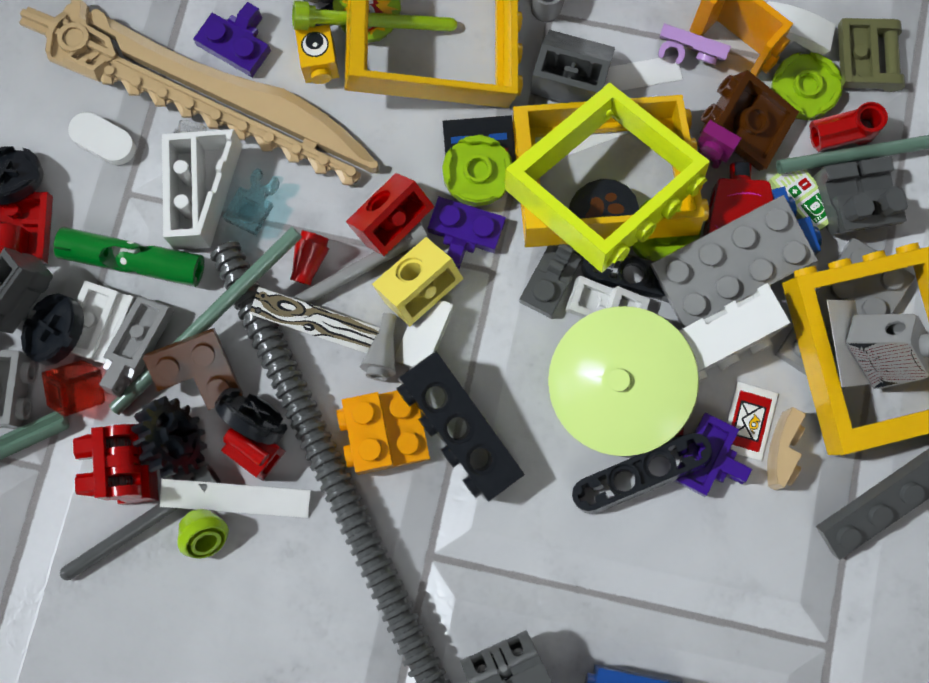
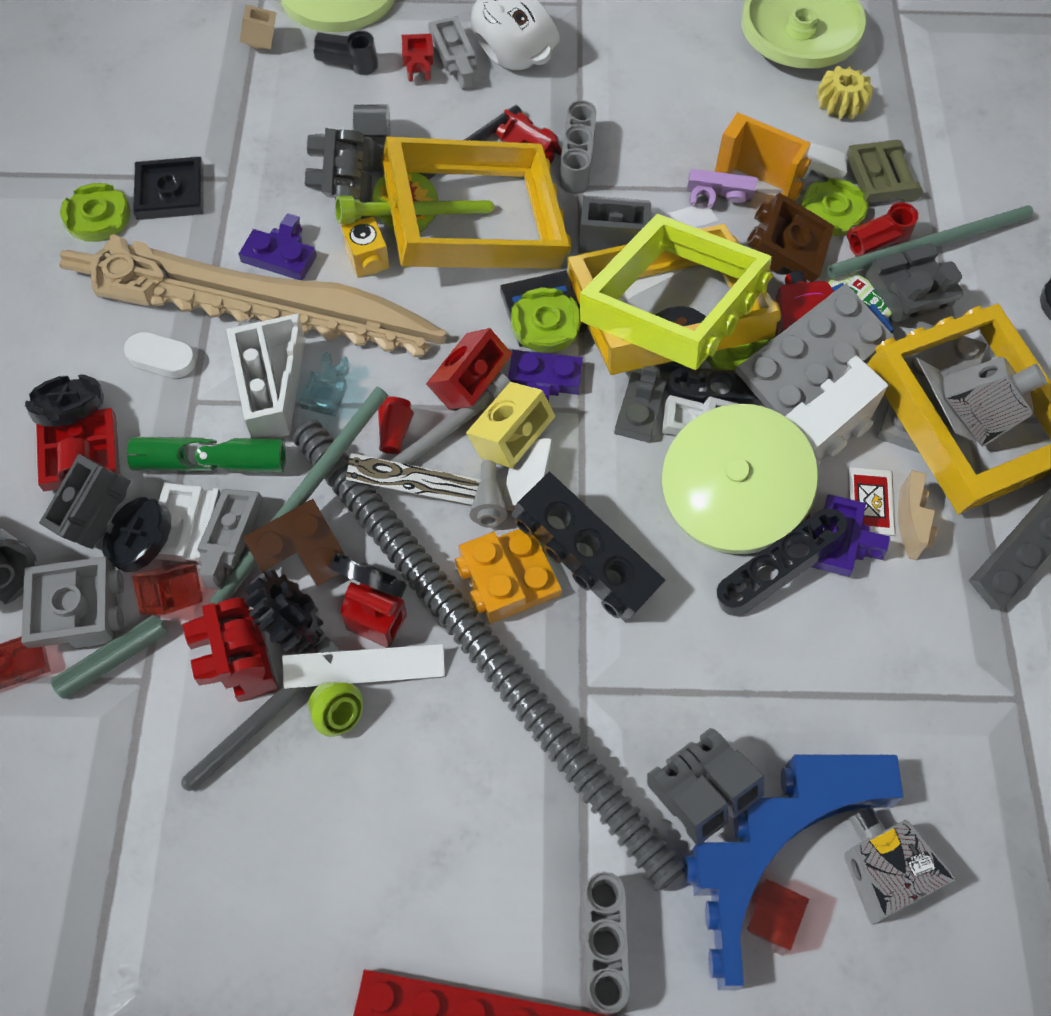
camera: 15 degrees left, 15 degrees down
(717, 143) = (778, 249): magenta plate -> none

